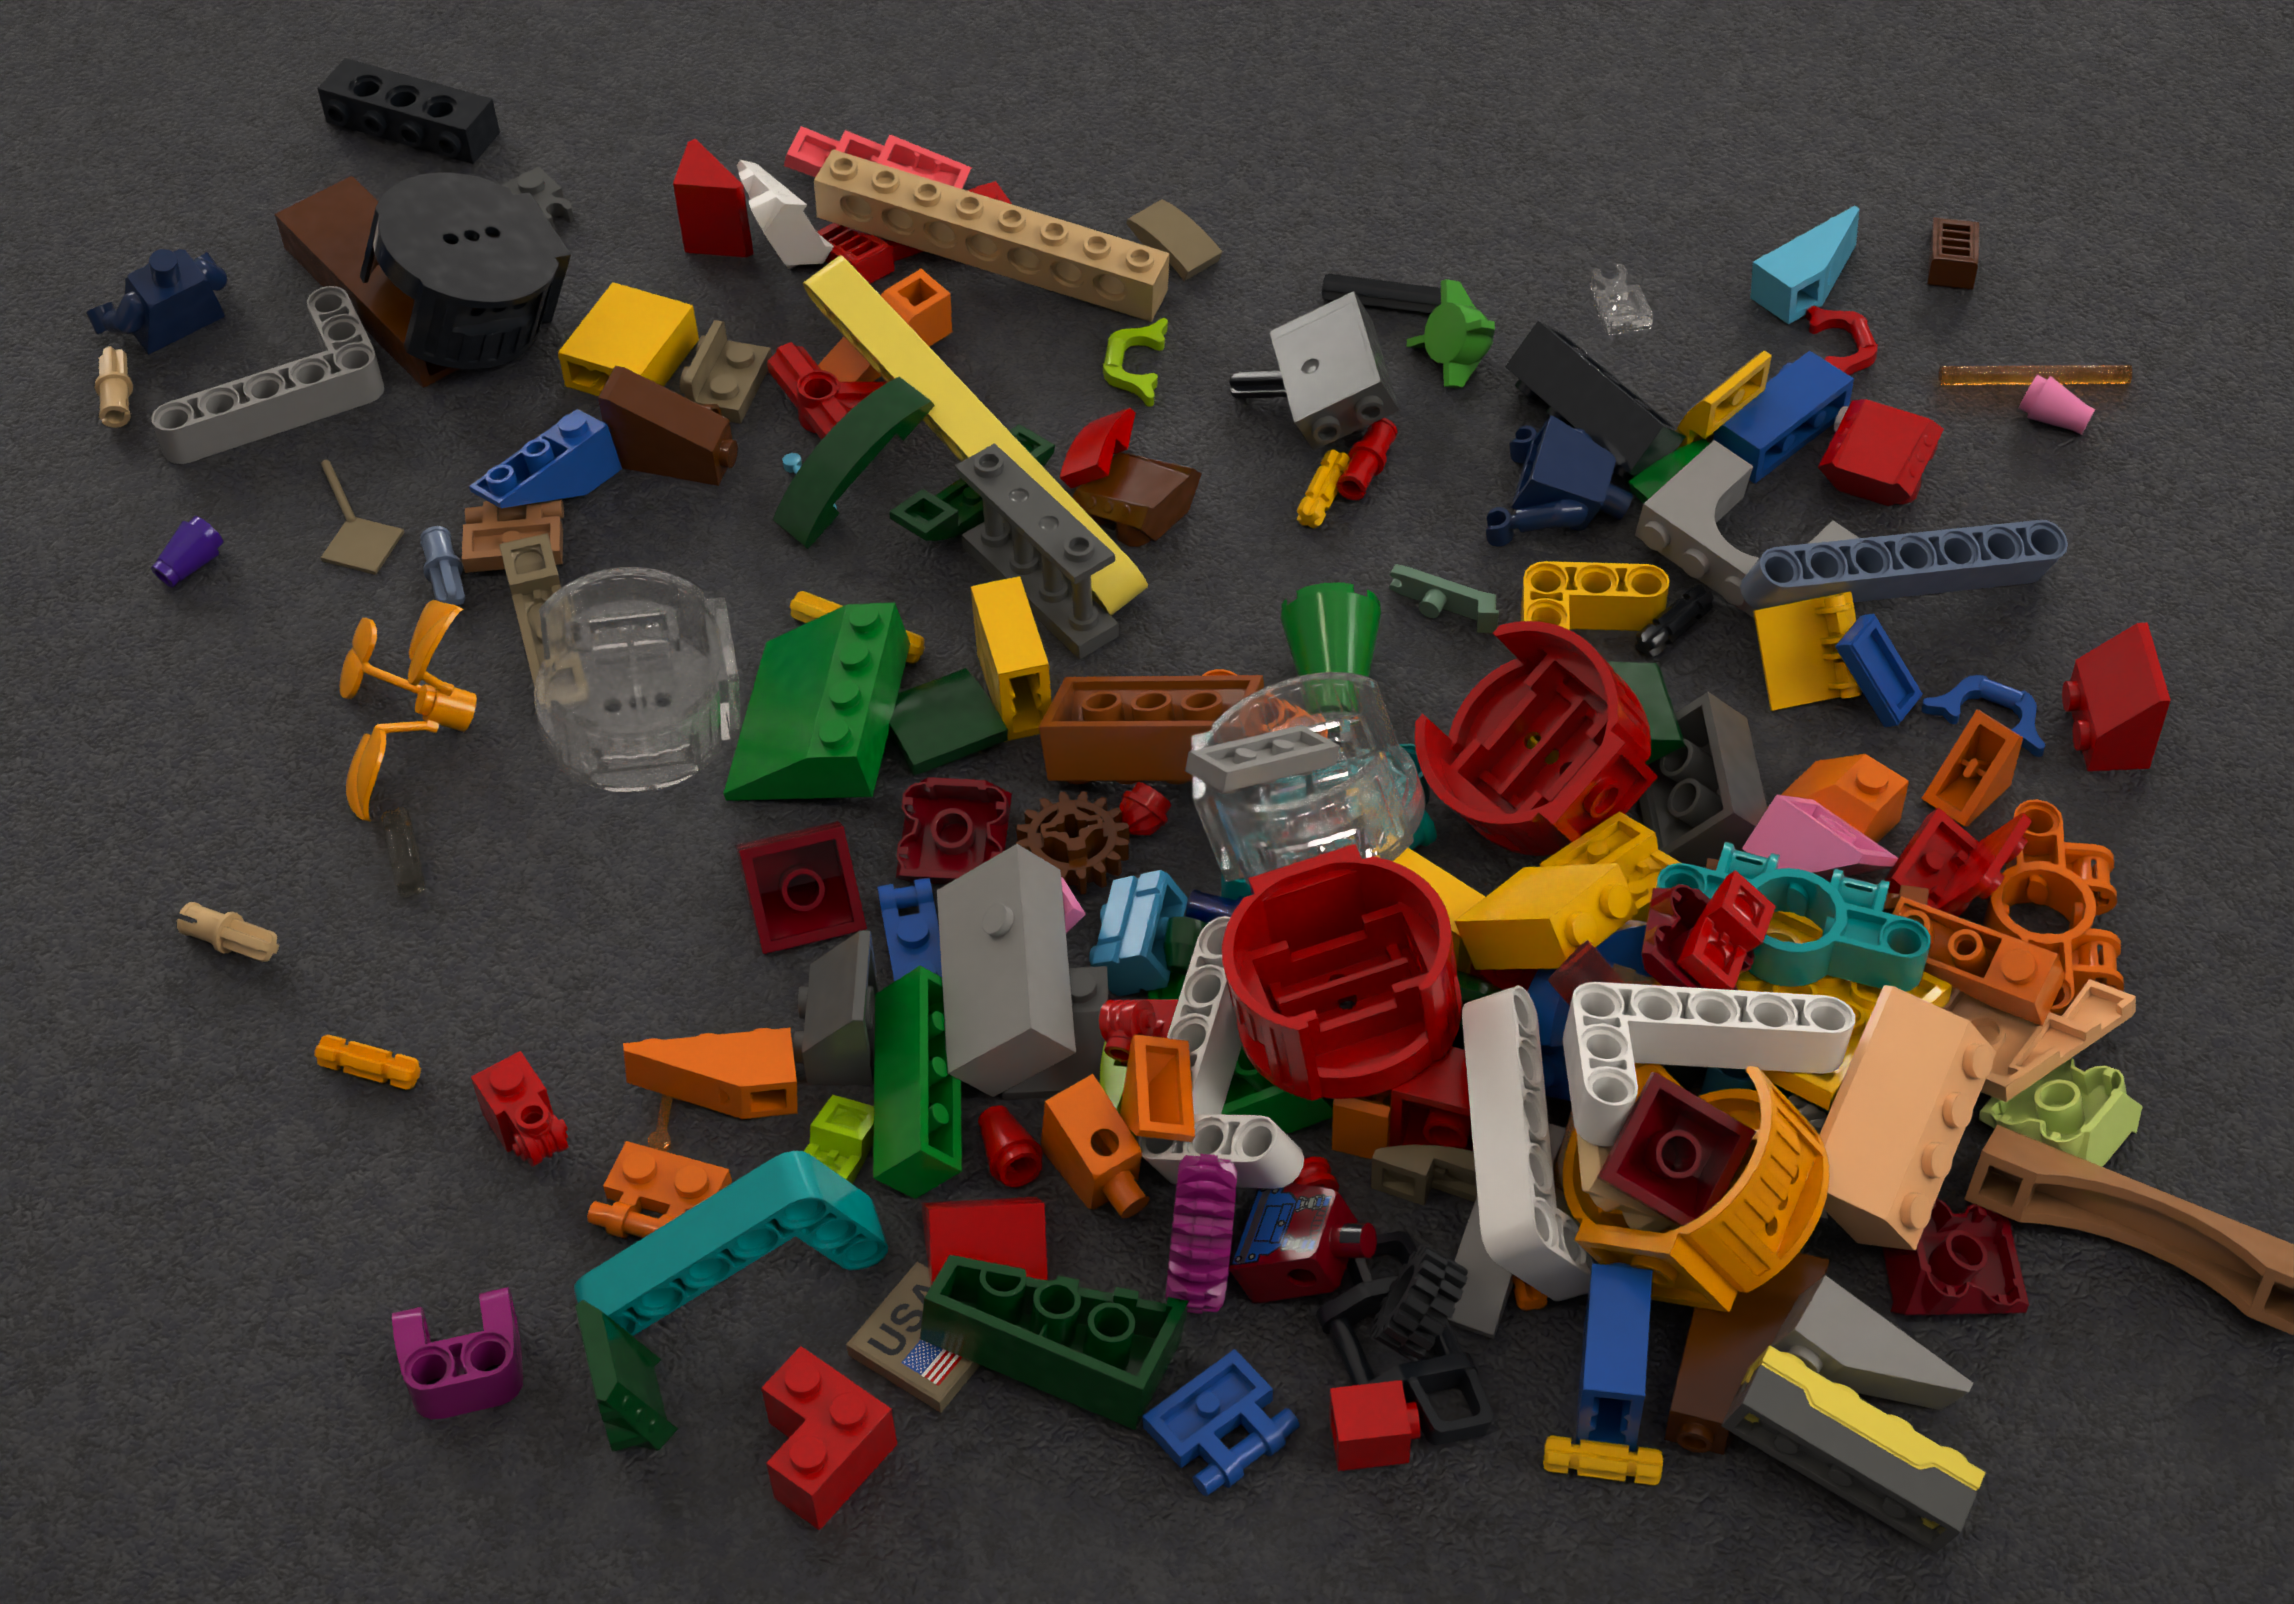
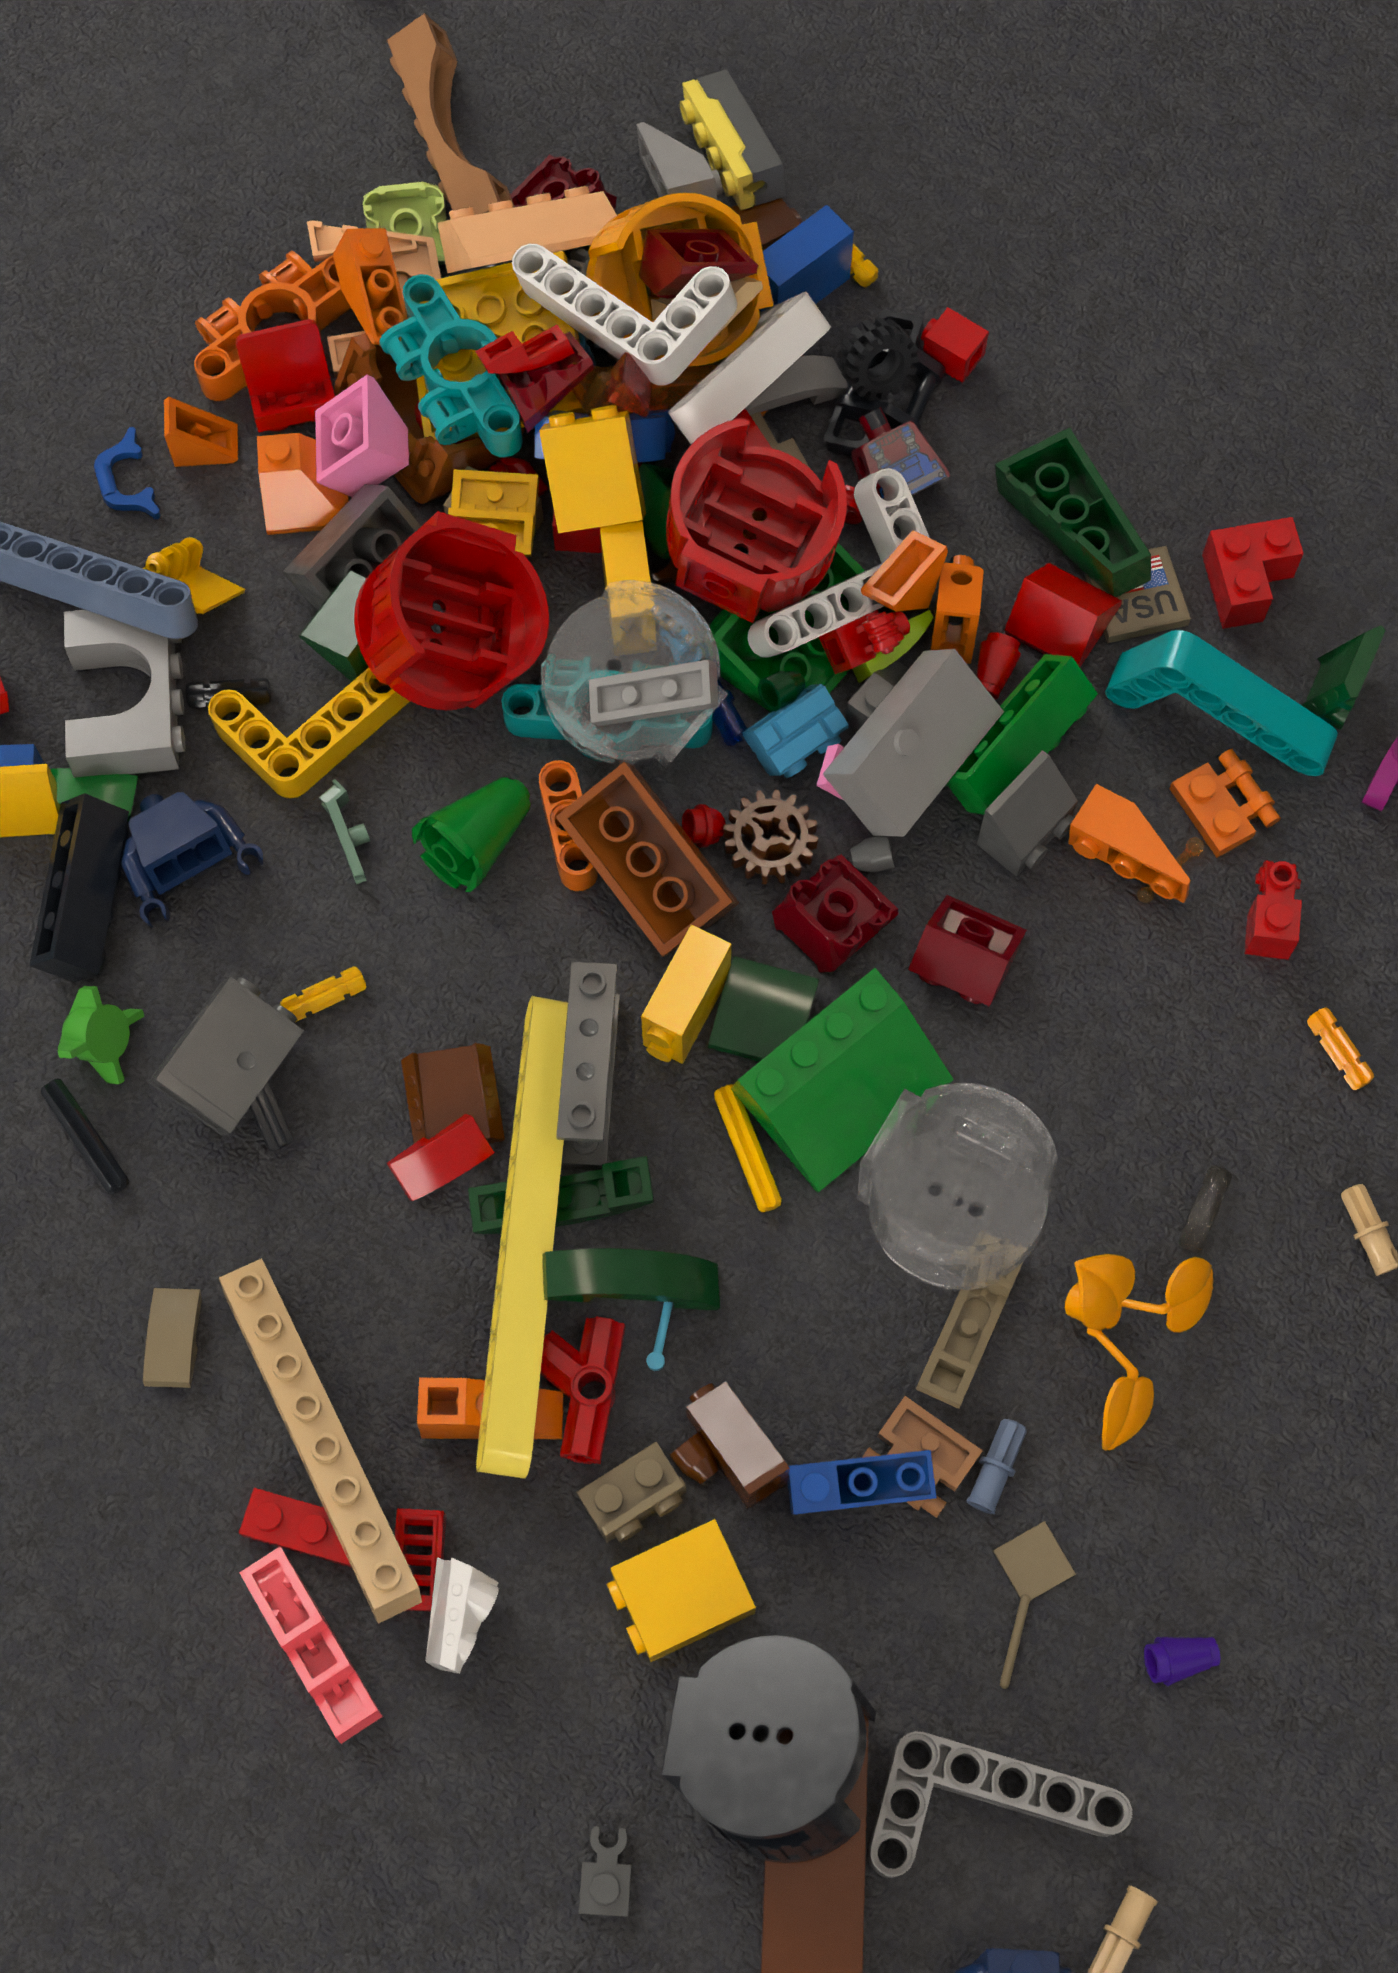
camera: 140 degrees left, 20 degrees up
(711, 206) = (498, 1690): red slope -> none
(842, 1136) = (1097, 750): lime slope -> none
(915, 937) = (930, 852): blue plate -> none
(1117, 345) = (334, 1255): lime helmet -> none
(1202, 1232) = (957, 487): magenta gear -> none
(1210, 1408) = (1019, 428): blue plate -> none
(1367, 459) = (284, 982): red pin -> none
(1879, 670) = (170, 530): blue tile -> none
(2118, 702) = (66, 395): red slope -> none

